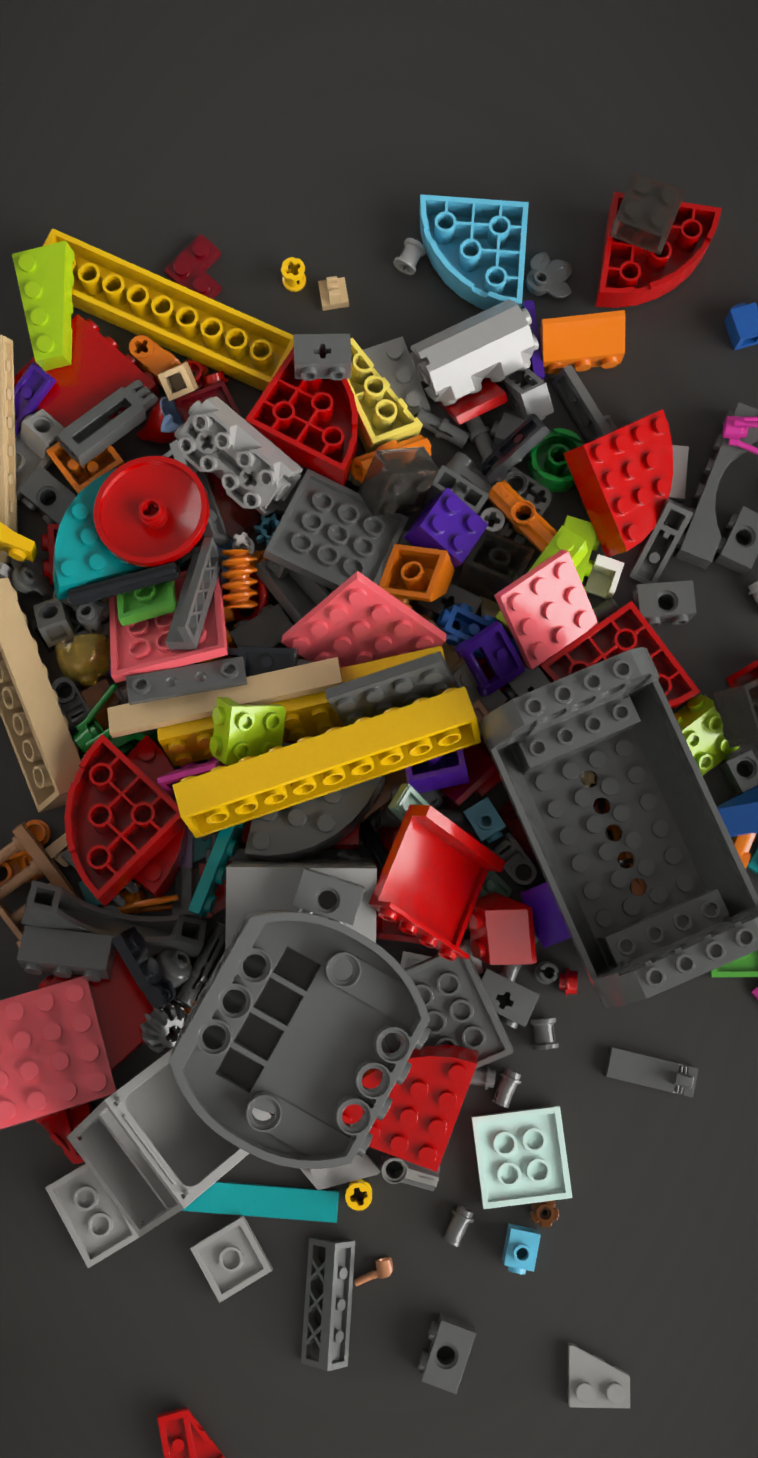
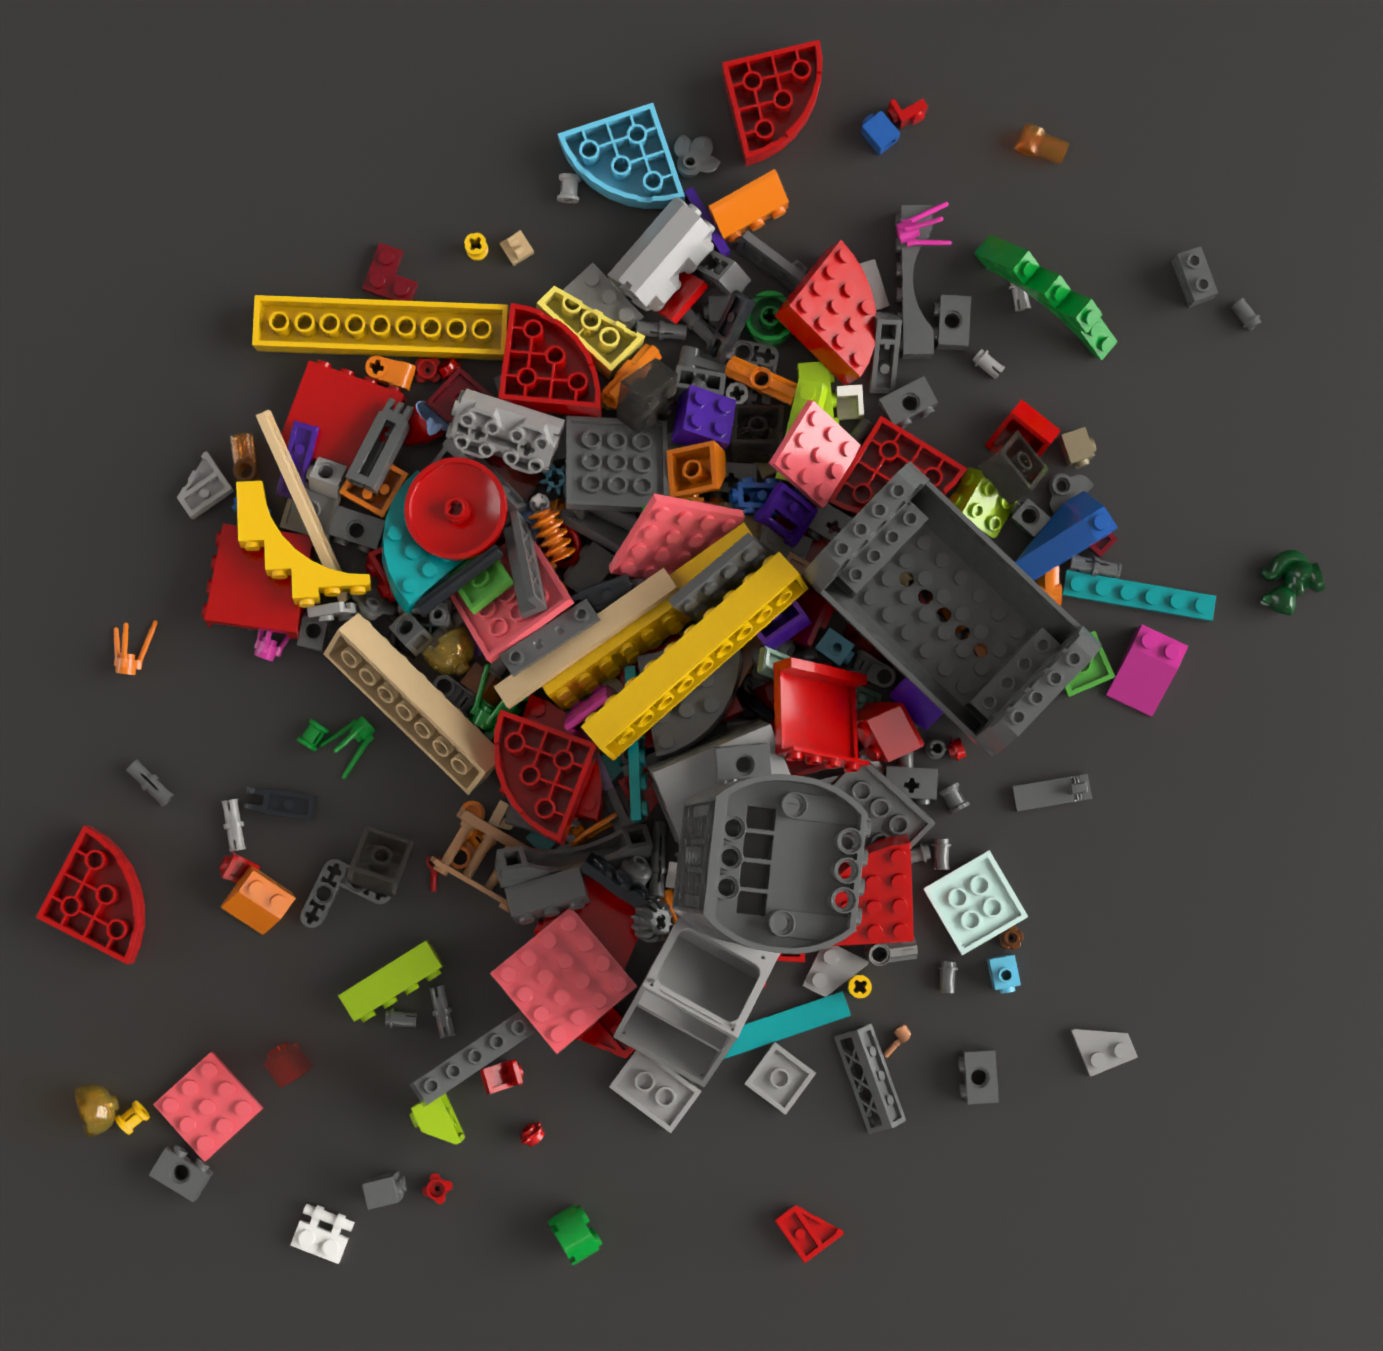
camera: 25 degrees left, 5 degrees up
(46, 296) = (281, 359): lime wedge -> none
(178, 381) = (423, 385): tan brick -> none
(245, 729) = (616, 659): lime bracket -> none
(322, 356) = (545, 305): dark grey brick -> none
(647, 213) = (759, 74): clear smoke brick -> none

